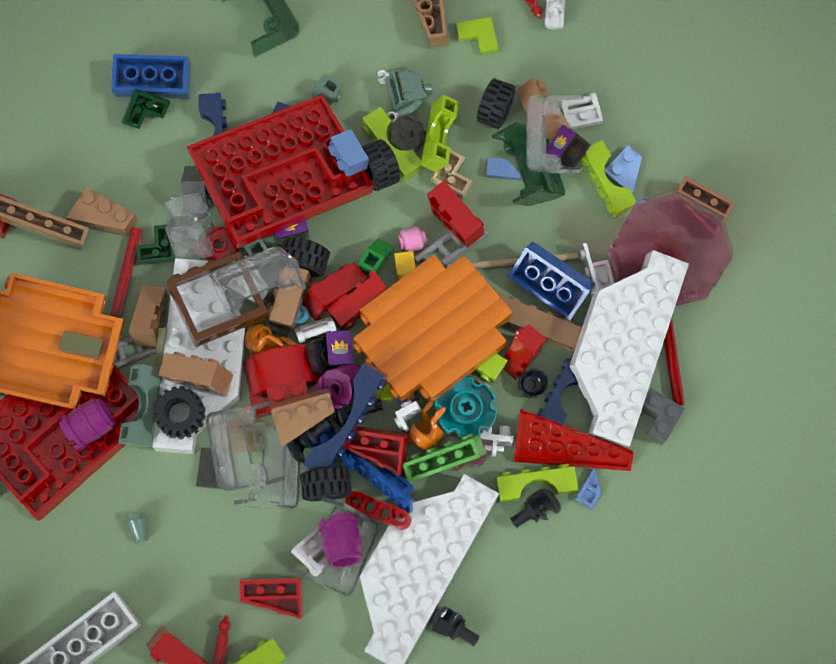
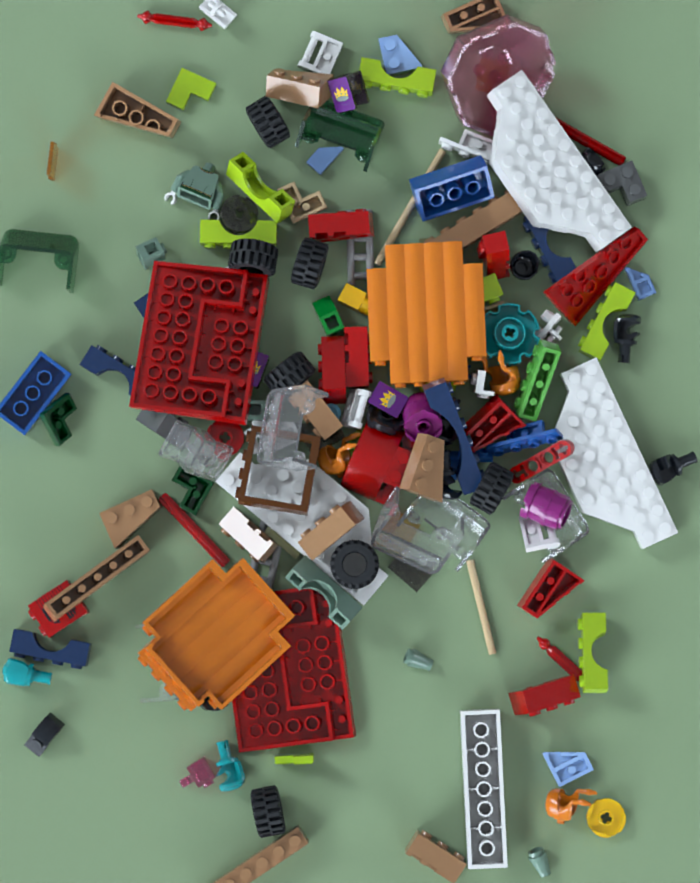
camera: 50 degrees left, 10 degrees up
(80, 345) = (239, 606): olive tile -> none
(87, 423) = (309, 643): magenta piece -> none
(220, 549) = (481, 607): none -> tan piece
(348, 153) = (228, 276): medium blue brick -> none
(406, 210) = (309, 263): none -> black tyre
(411, 239) = (334, 276): bright pink head -> none
(536, 158) = (307, 90): clear windscreen -> none
(660, 378) = (593, 161): none -> black hair

